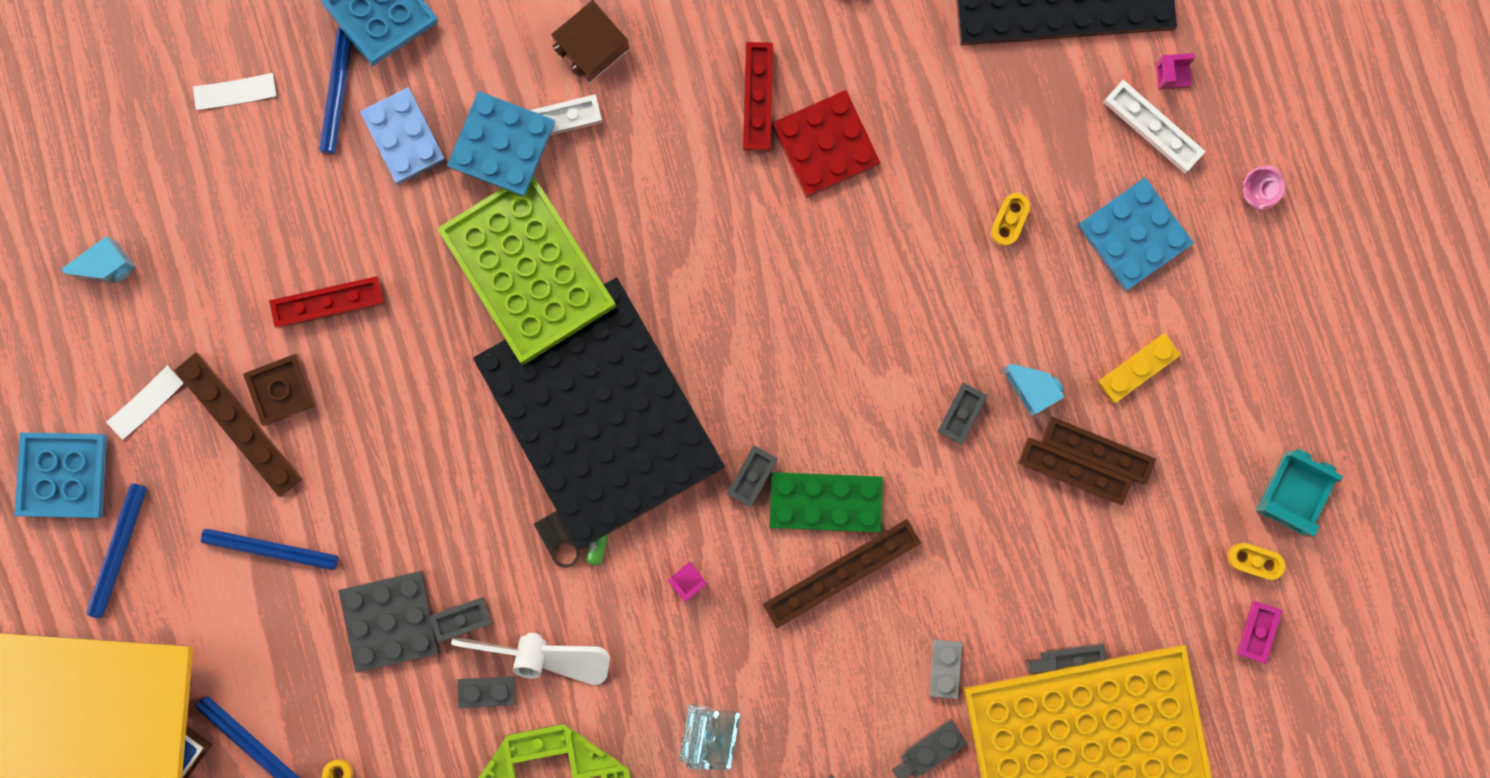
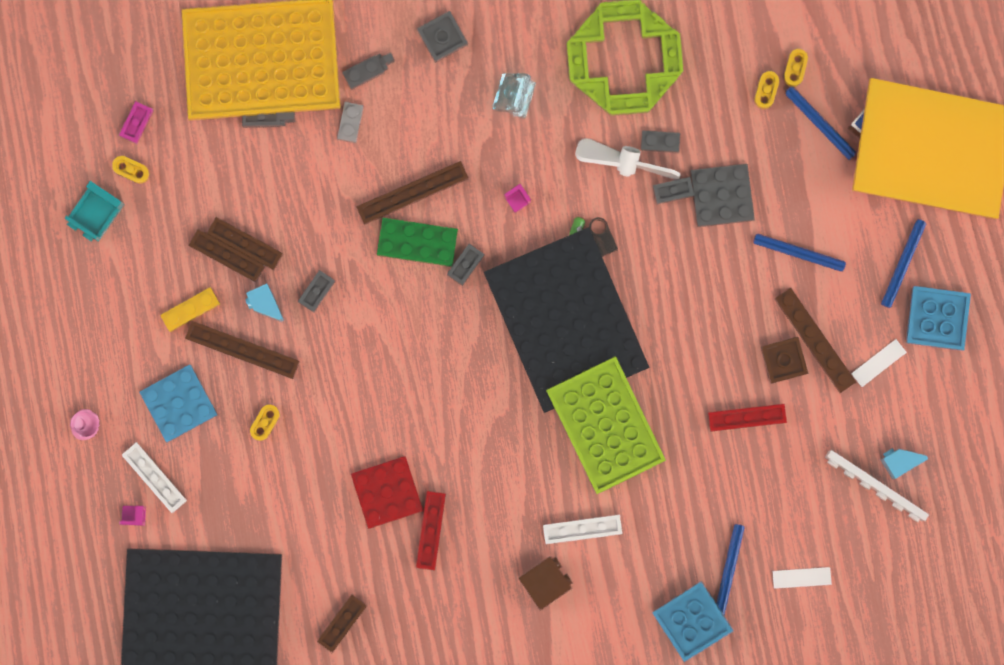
camera: 175 degrees left, 0 degrees up
(127, 219) = (882, 491): none -> white plate
(402, 136) = (685, 531): light blue plate -> none
(501, 144) = (615, 514): dark azure plate -> none
(1056, 318) = (242, 350): none -> reddish brown plate

